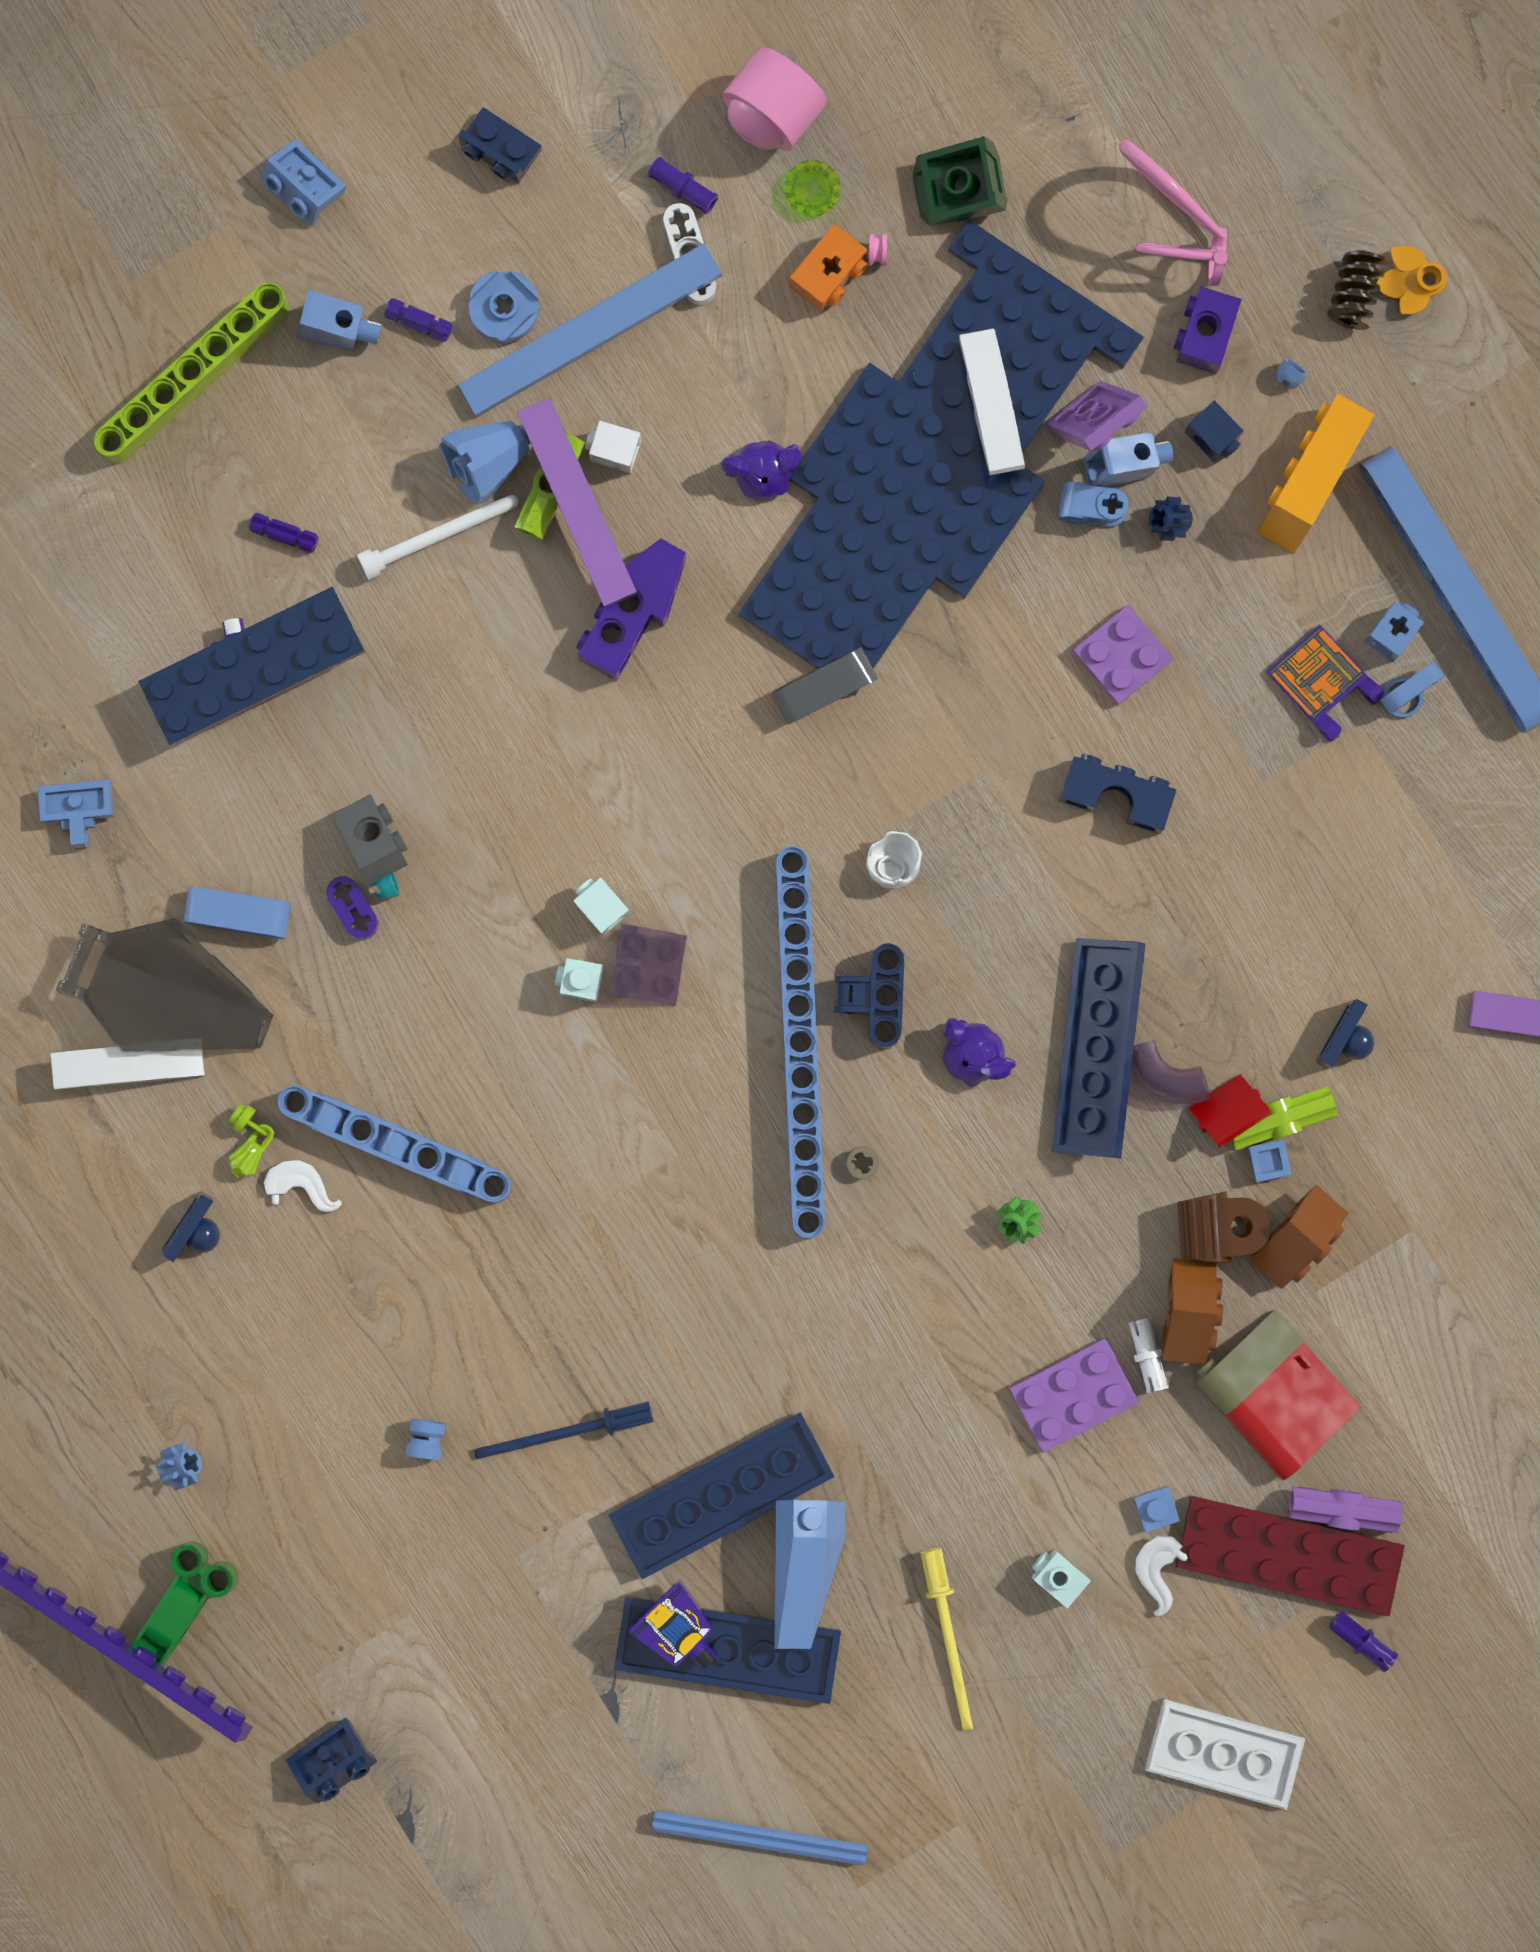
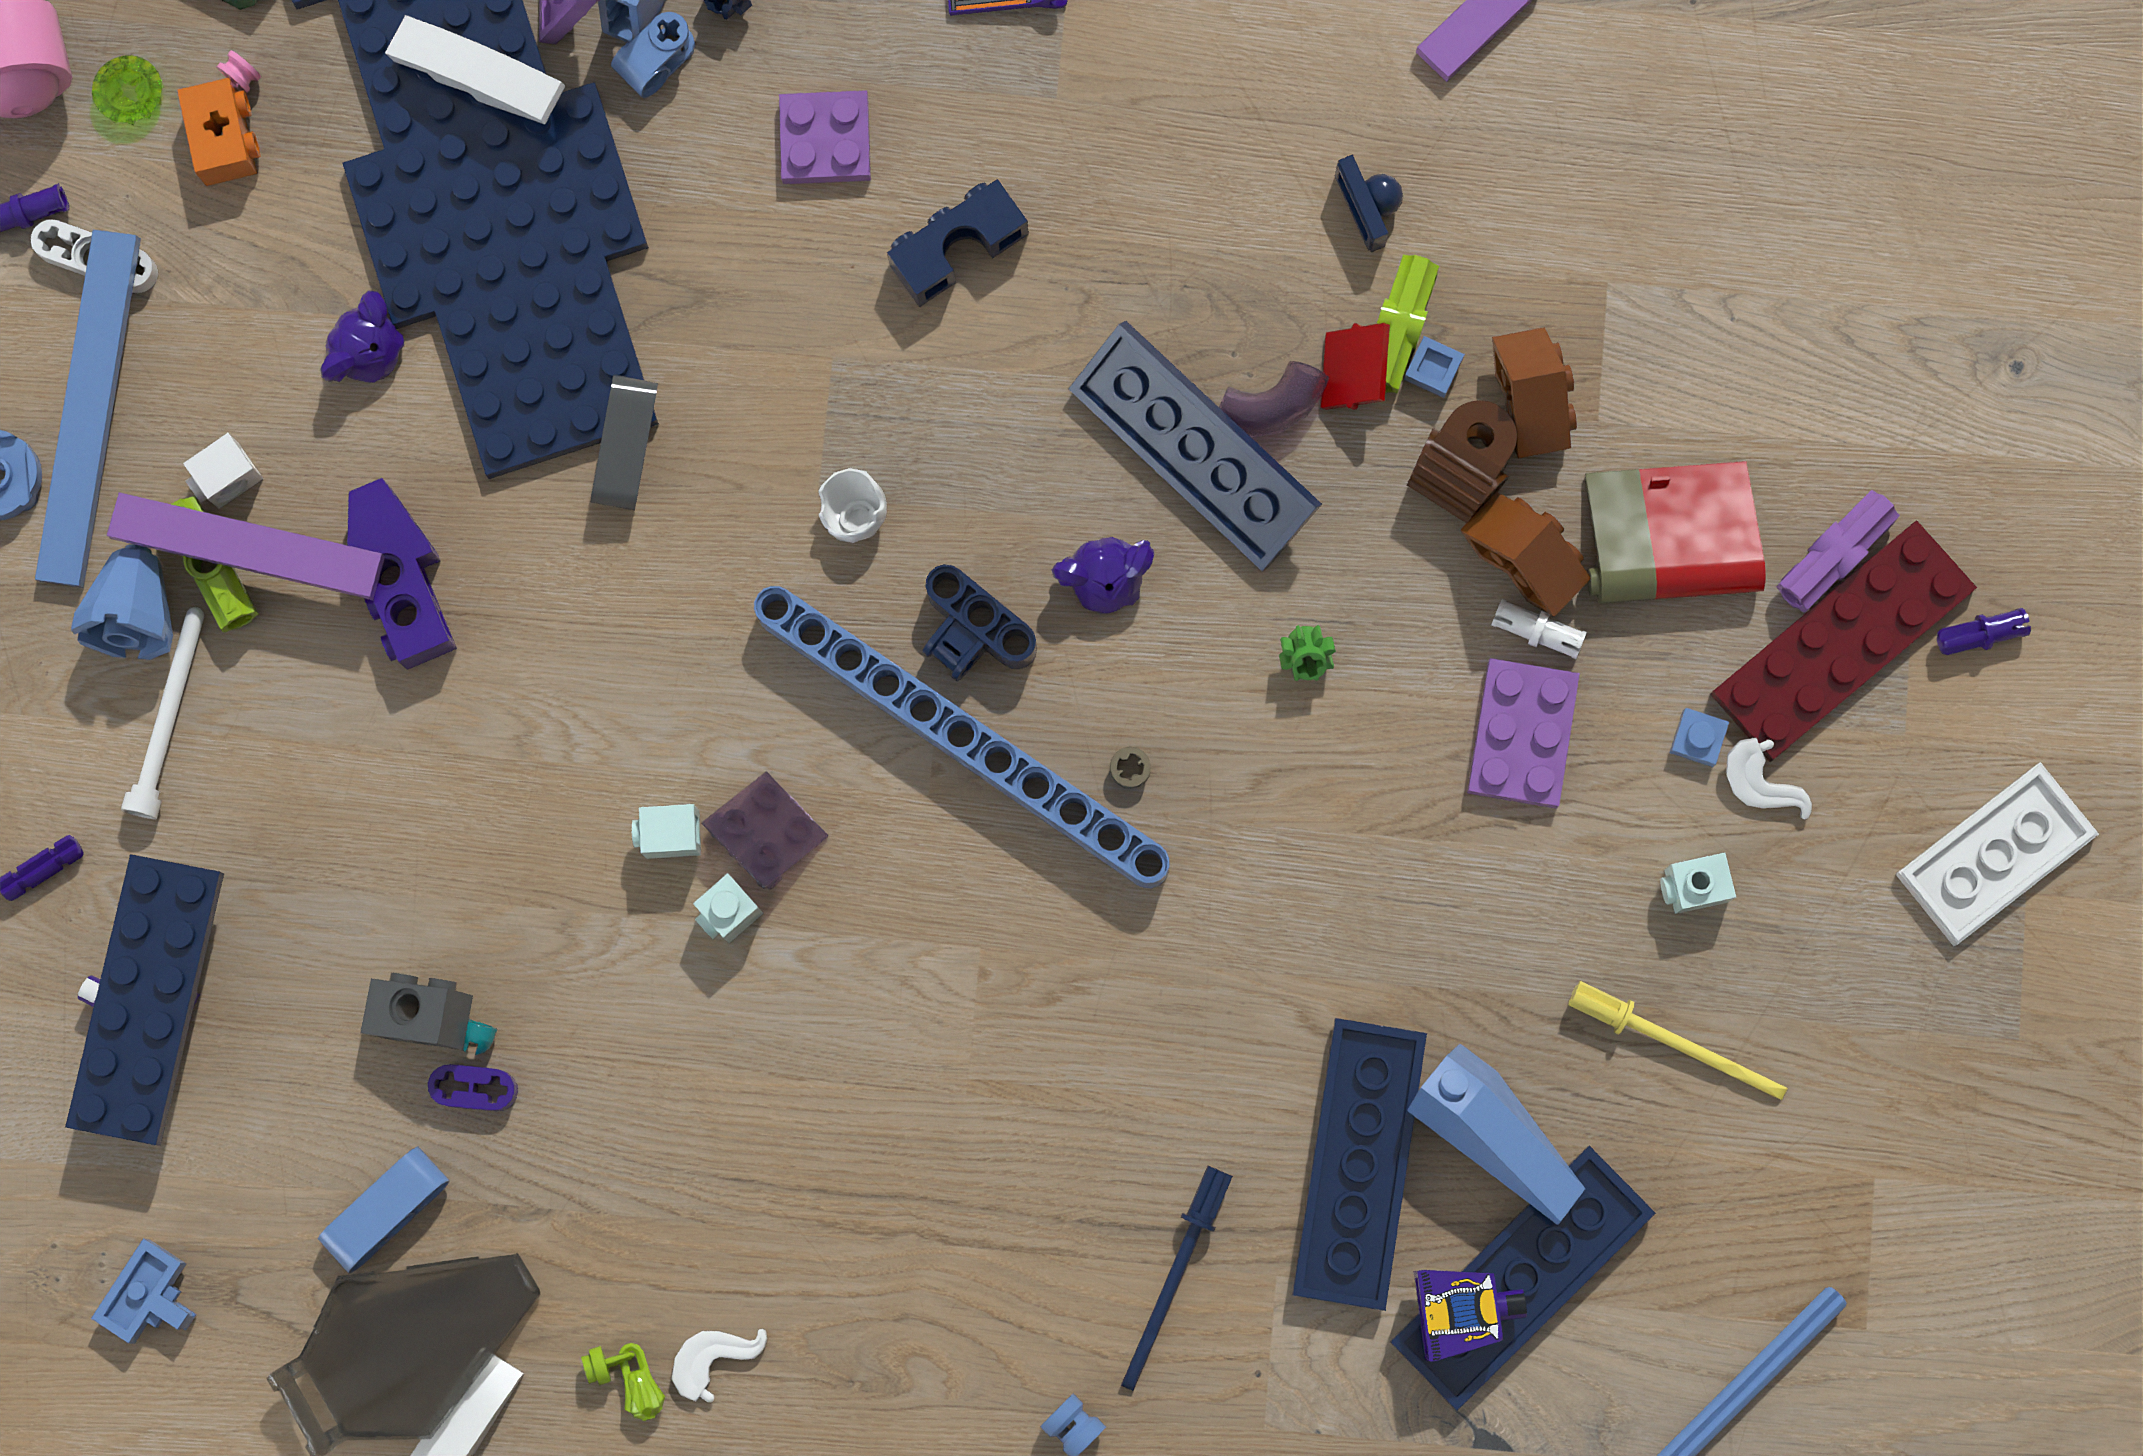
camera: 45 degrees left, 5 degrees down
(394, 1143) = (744, 1227): medium blue beam -> none

